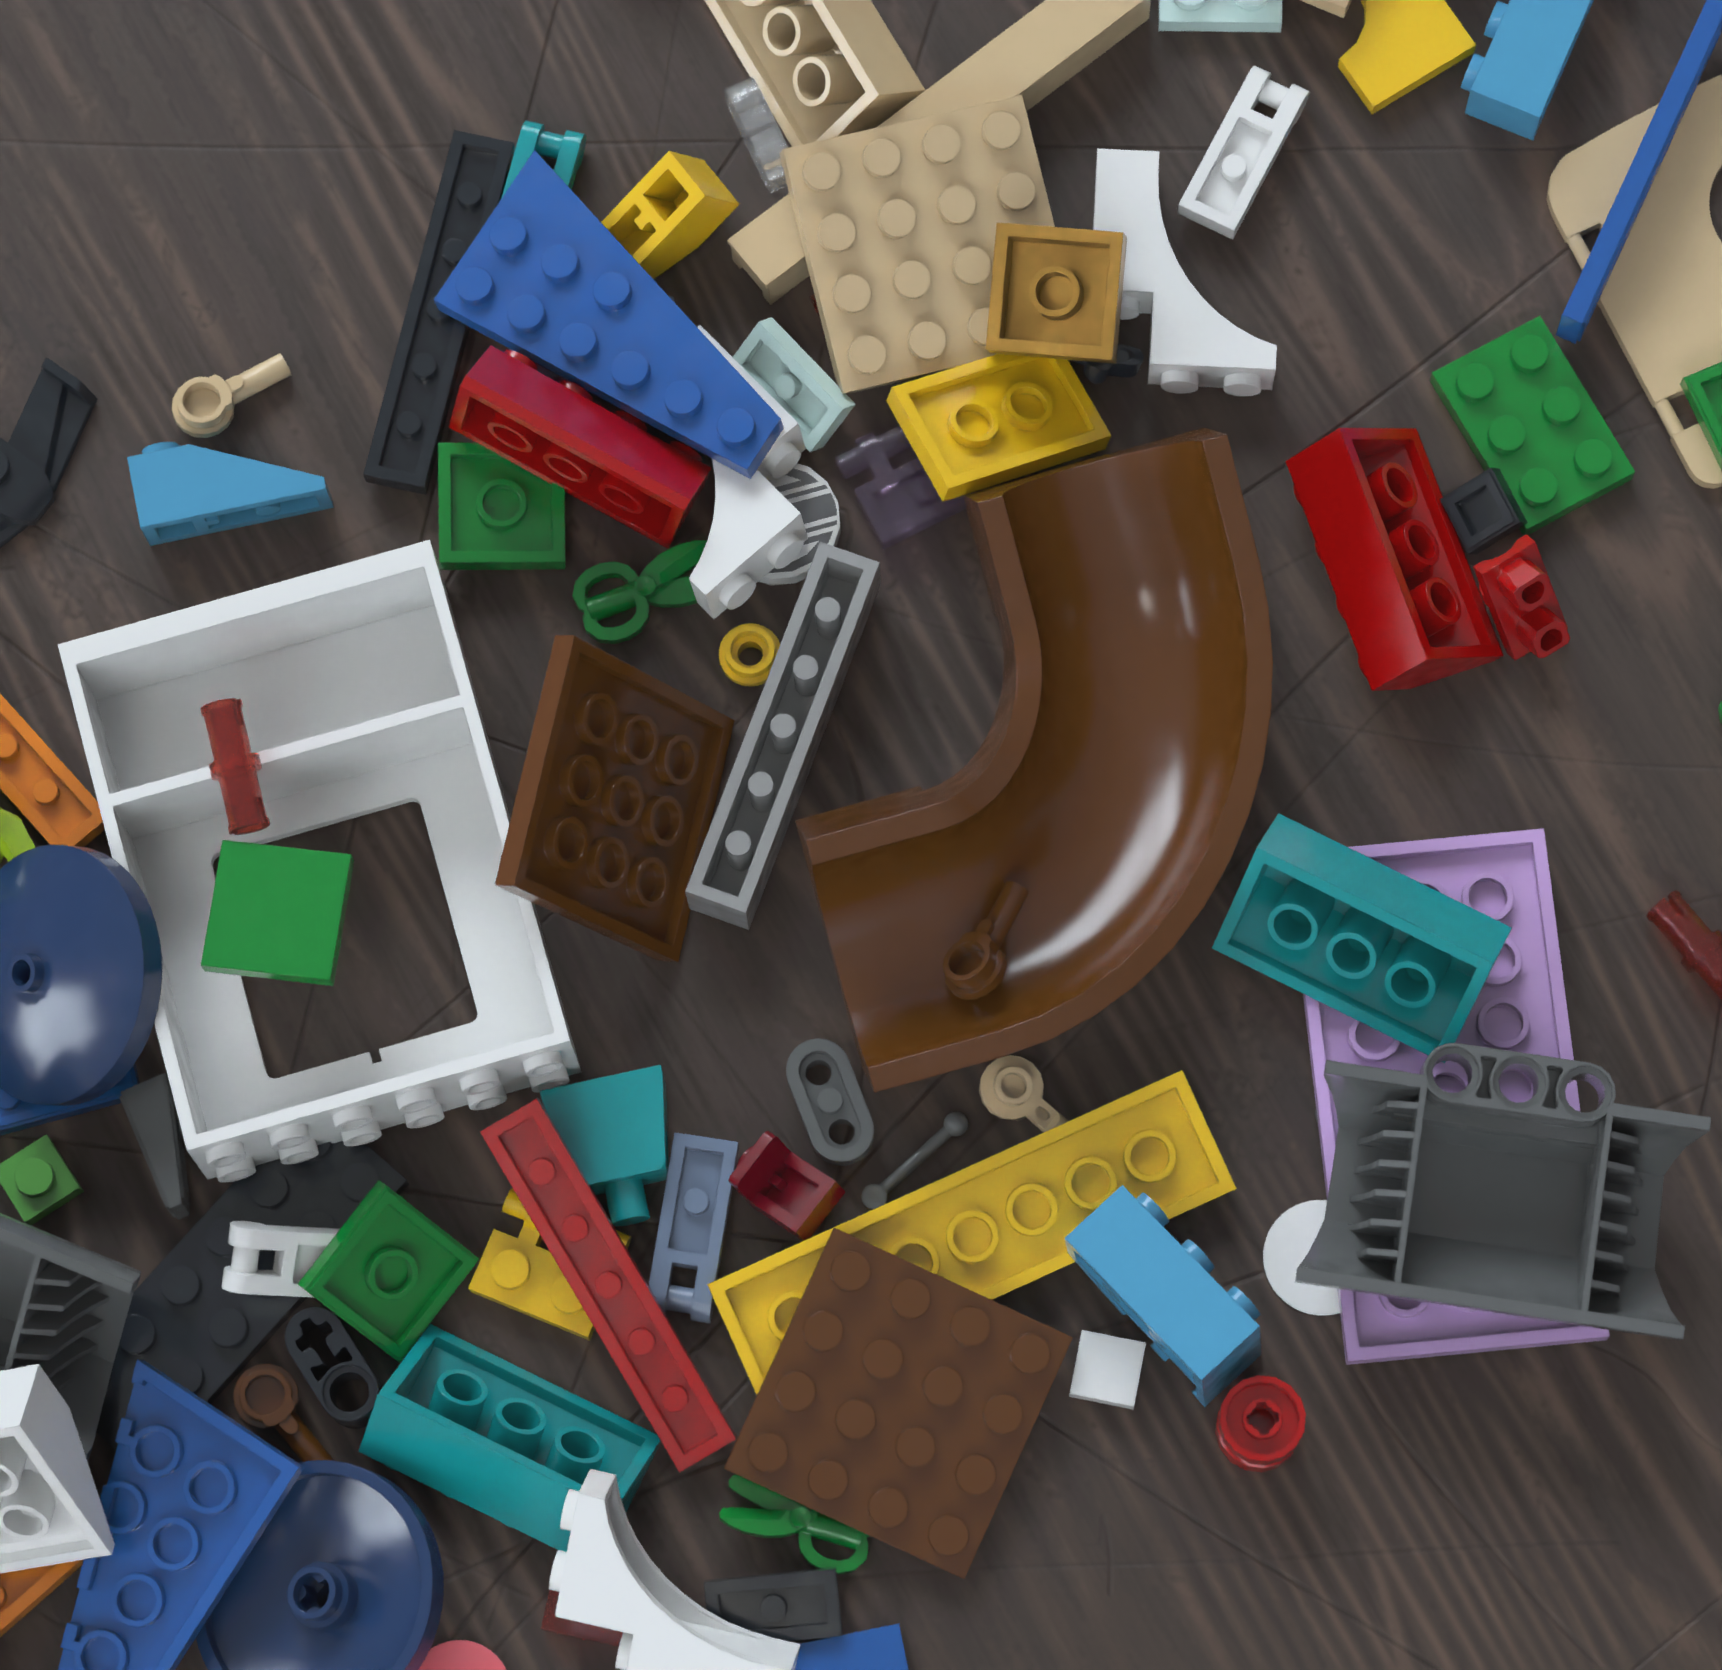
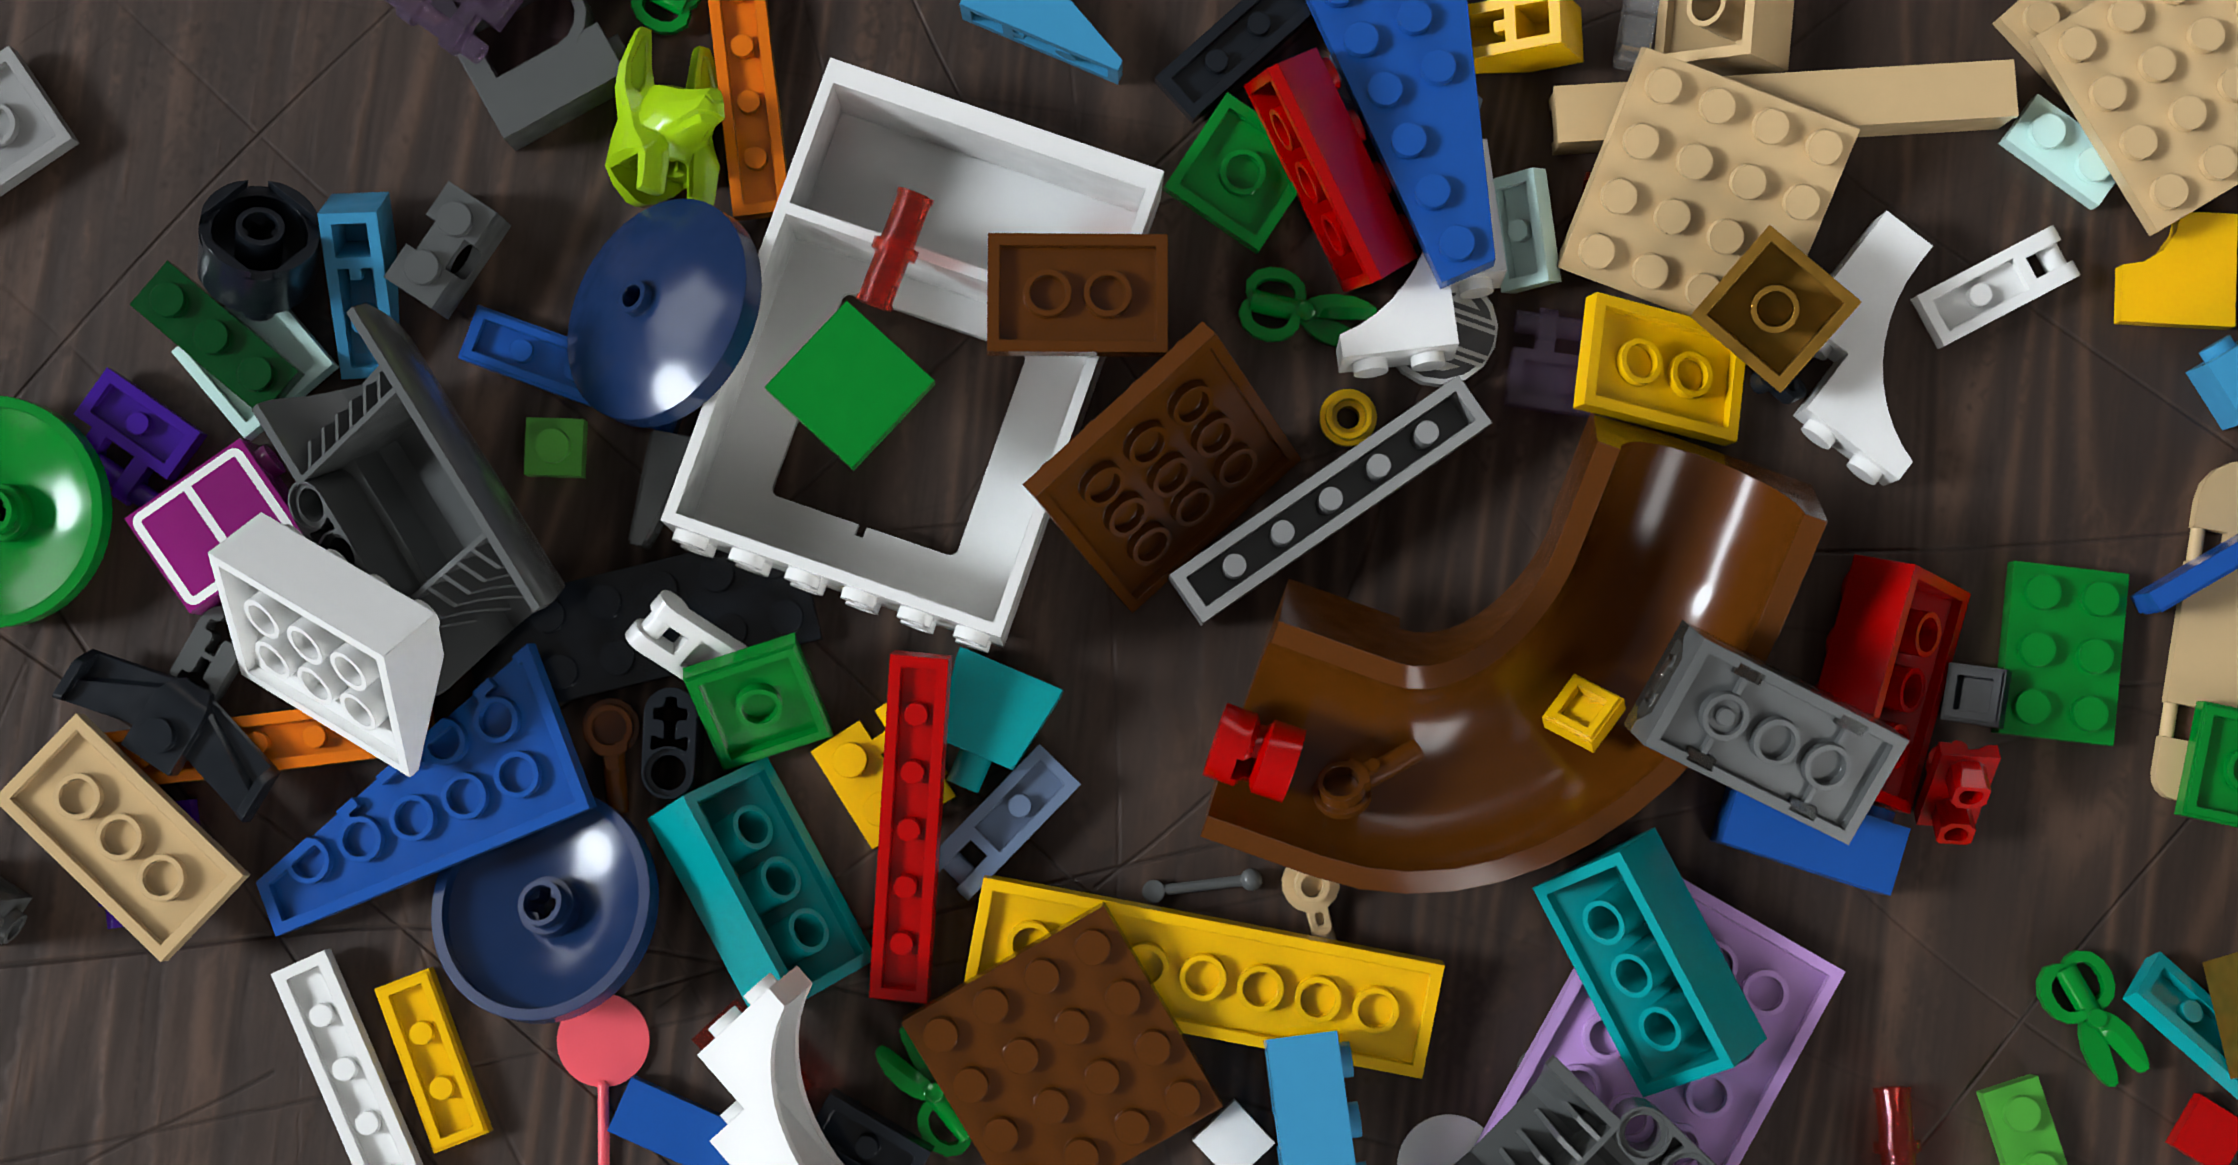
camera: 30 degrees right, 10 degrees up
(428, 694) = (1077, 294): none -> reddish brown plate
(785, 1186) = (1092, 842): dark red bracket -> none
(831, 1103) = (1169, 800): dark grey plate -> none
(894, 993) = (1254, 752): none -> red wheel
(1143, 758) = (1584, 713): none -> yellow tile
(1306, 652) = (1765, 732): none -> dark grey piece
(1424, 729) = (1866, 863): none -> blue brick

